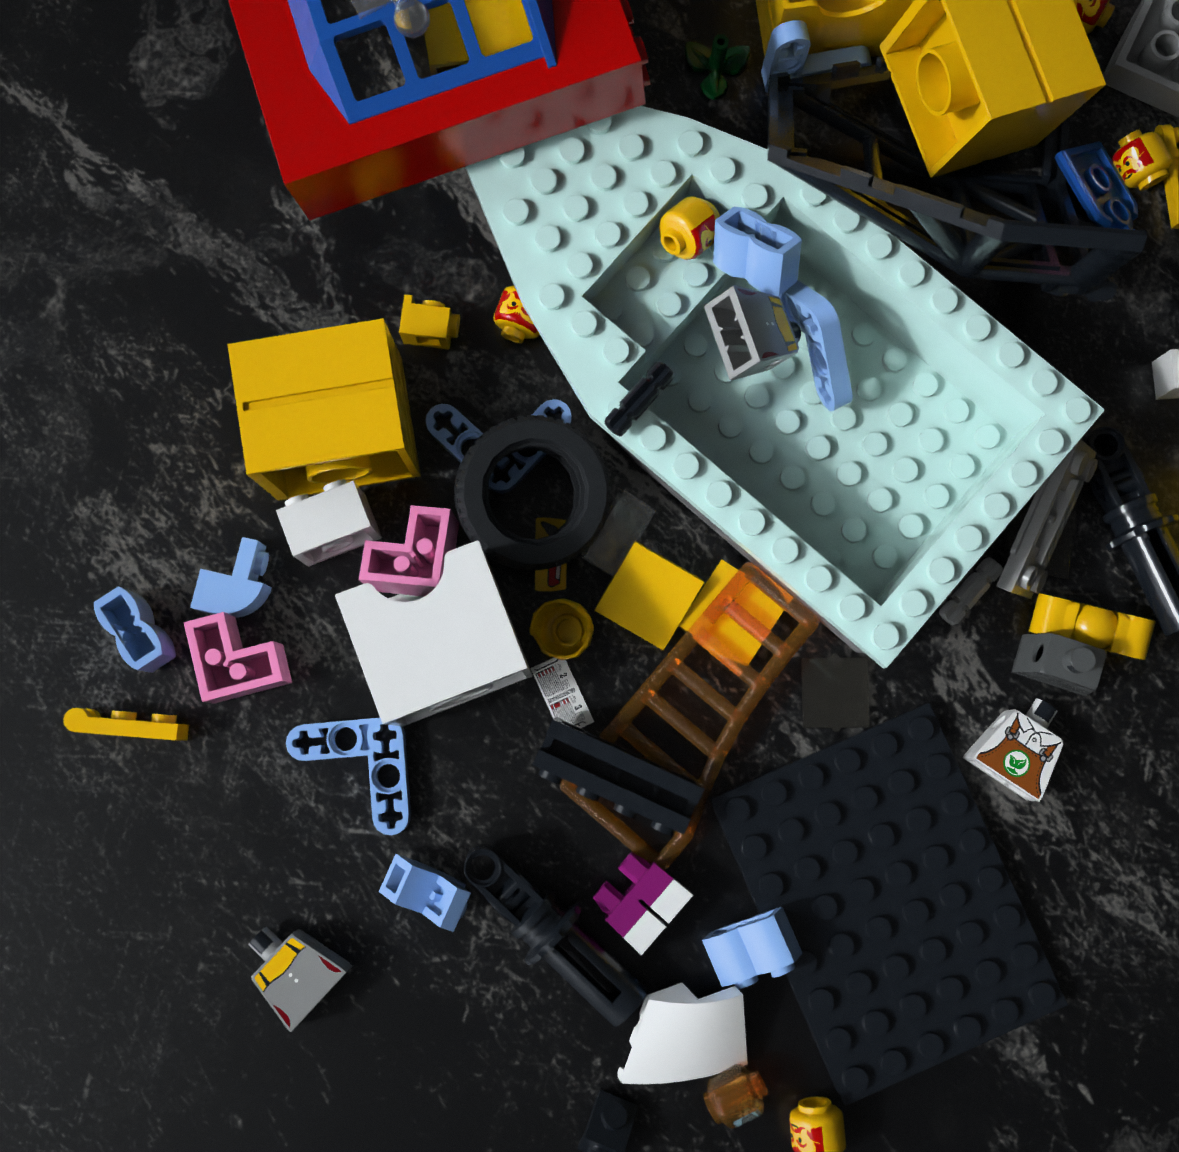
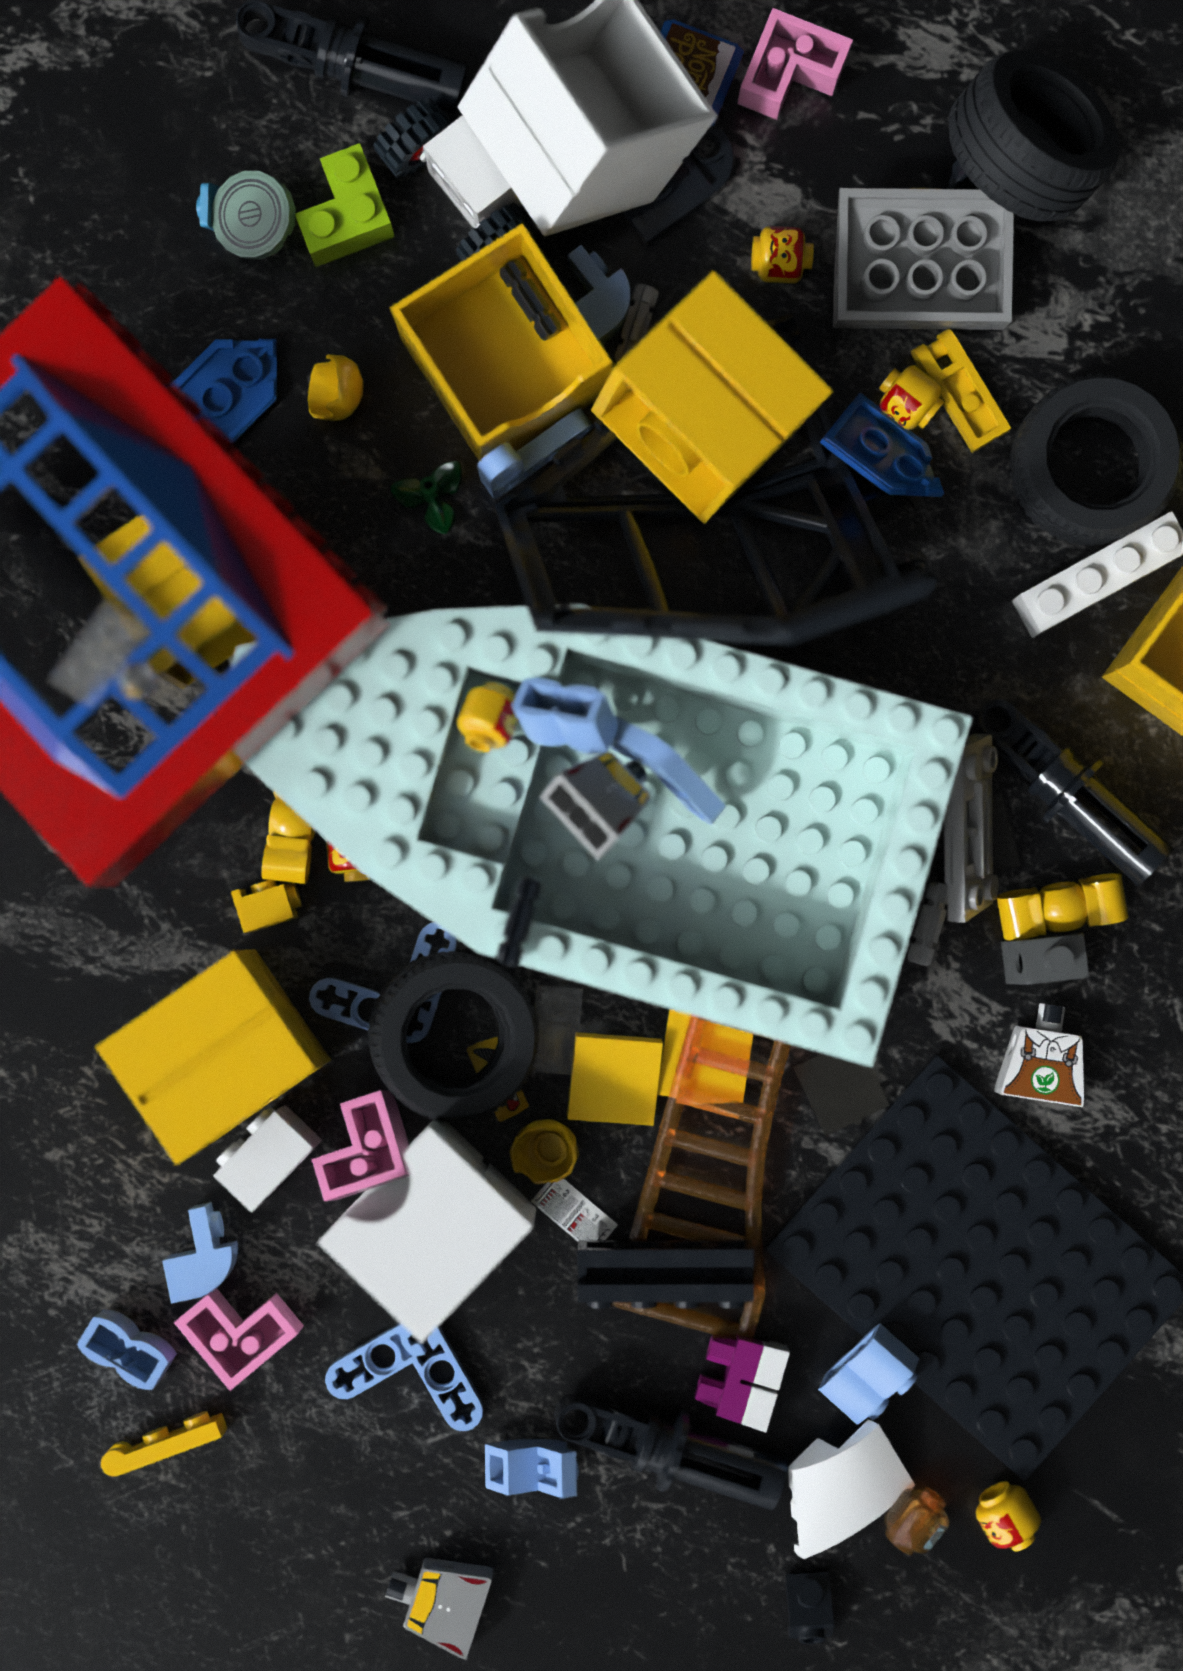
camera: 20 degrees left, 5 degrees up
(478, 271) = (287, 845): none -> yellow piece

